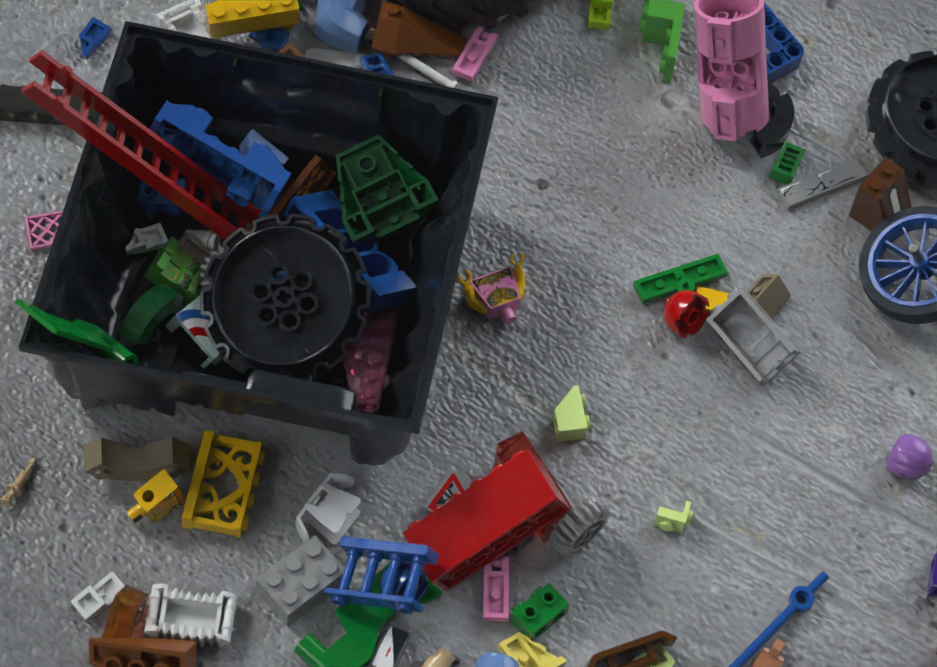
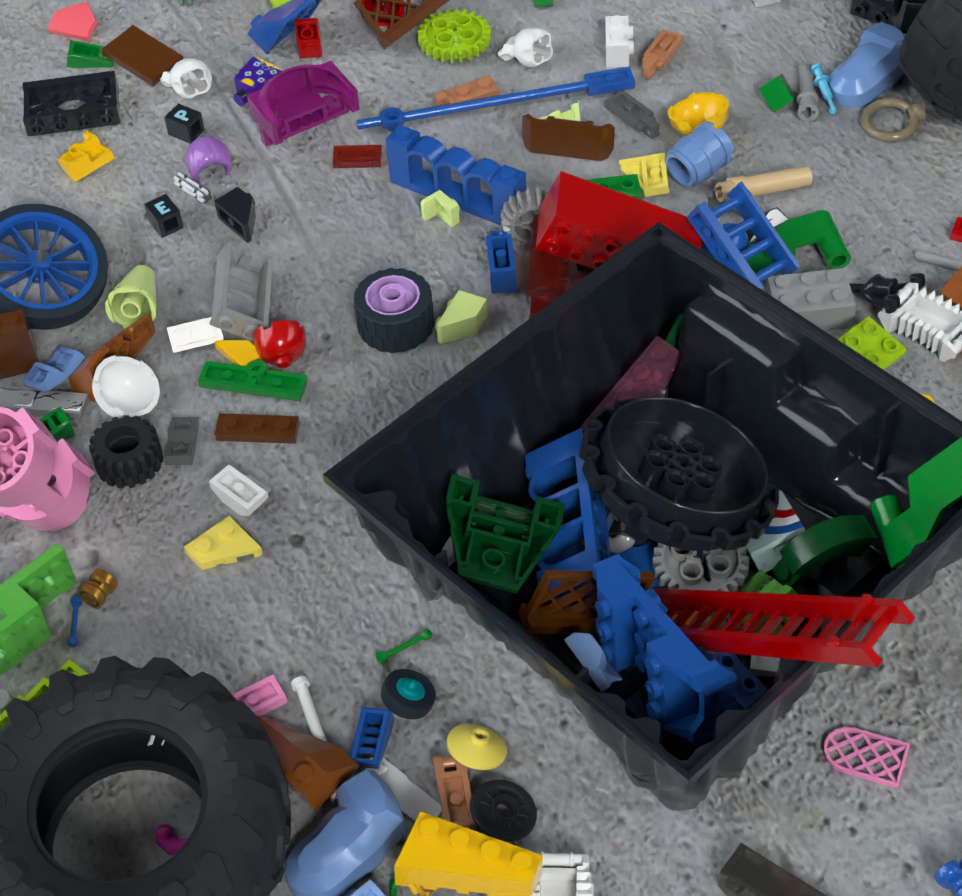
camera: 135 degrees left, 10 degrees down
(227, 548) = (873, 343): none -> lime bracket
(247, 625) = (884, 288): none -> black piece
(577, 477) = (501, 262): none -> blue hinge
(586, 150) = (221, 545): none -> light yellow wing
(608, 191) = (239, 491): none -> white slope
(623, 385) = (394, 310): none -> black wheel
(637, 73) = (97, 589): none -> pearl gold wheel
(644, 247) = (257, 428): none -> reddish brown plate
(647, 67) = (75, 602): none -> blue hinge
(679, 538) = (406, 170): none -> blue fence
(686, 209) = (181, 441): none -> dark grey slope
(717, 156) = (128, 467): none -> black tyre
(757, 209) = (125, 387): none -> white cylinder
(796, 224) = (125, 344): none -> dark orange wedge
(796, 545) = (357, 156): none -> clear red tile
(827, 202) = (56, 370): none -> medium blue slope
(832, 420) = (237, 212): none -> black slope
(833, 295) = (133, 297): none -> yellowish green cone
(891, 386) = (163, 215): none -> black brick
(893, 554) = (292, 102): none -> magenta piece
(896, 431) = (192, 187): none -> axle

